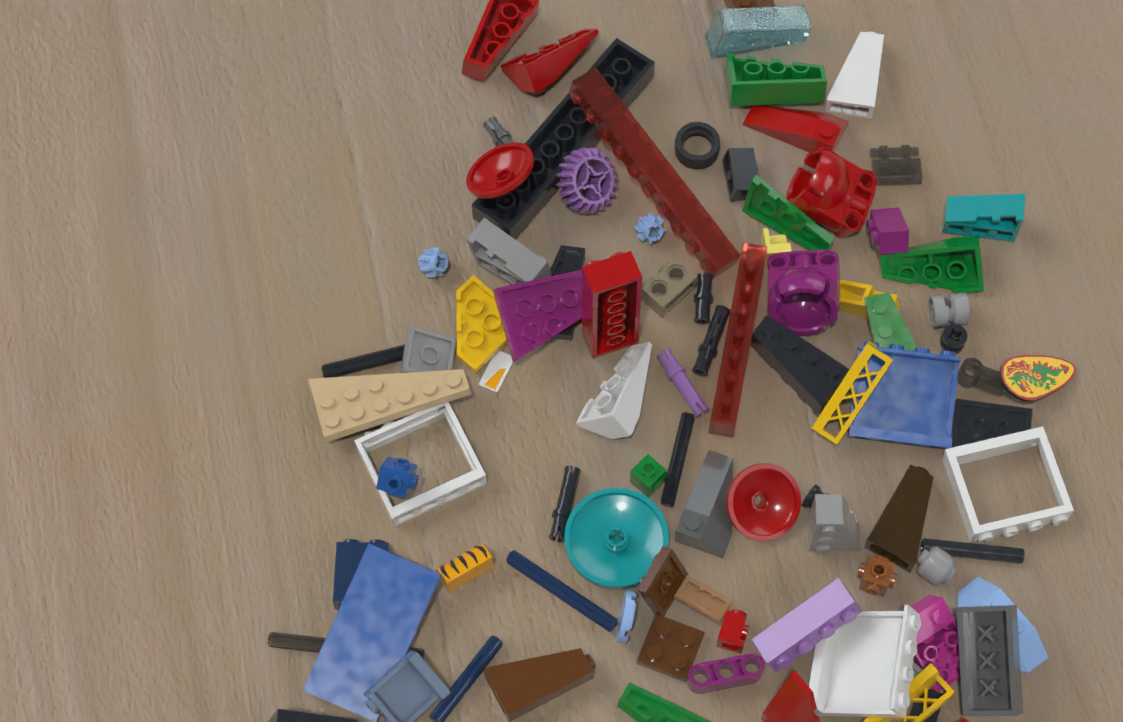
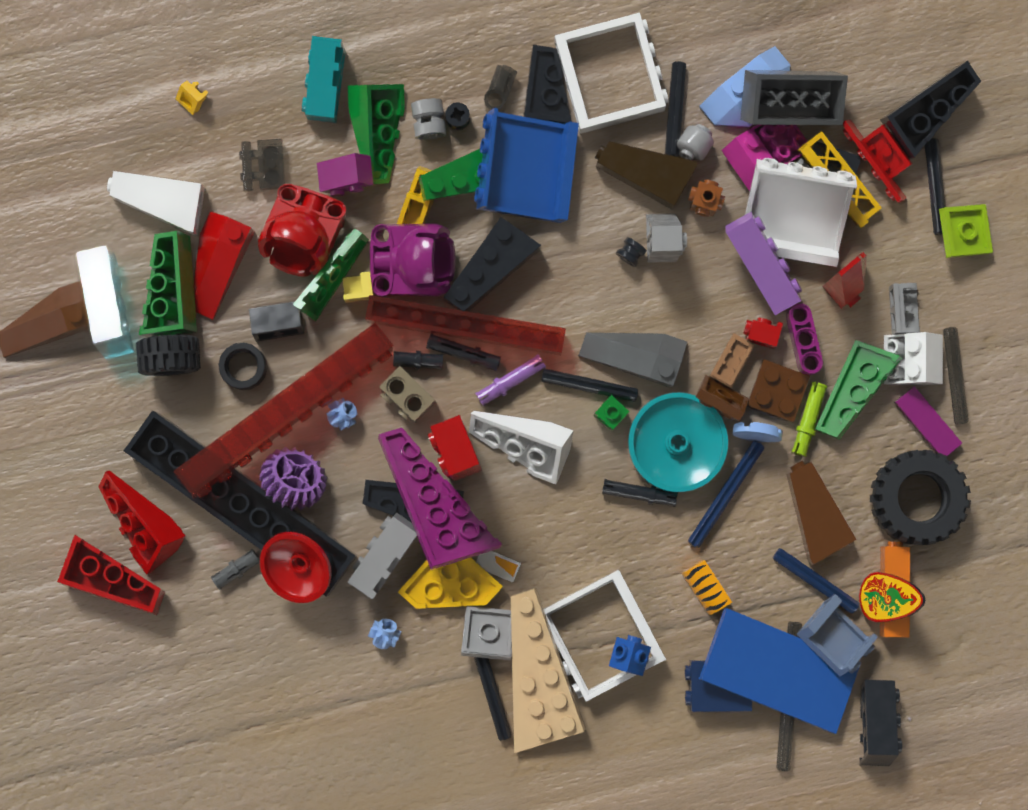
camera: 90 degrees left, 20 degrees up
(639, 677) = (809, 418): none -> lime pin
(707, 76) = (168, 355): none -> black tyre
(778, 504) = (646, 297): red dish -> none
(840, 393) = (521, 220): yellow fence -> none
(959, 103) = (190, 97): none -> yellow tile
(1035, 376) = (499, 39): shield -> none

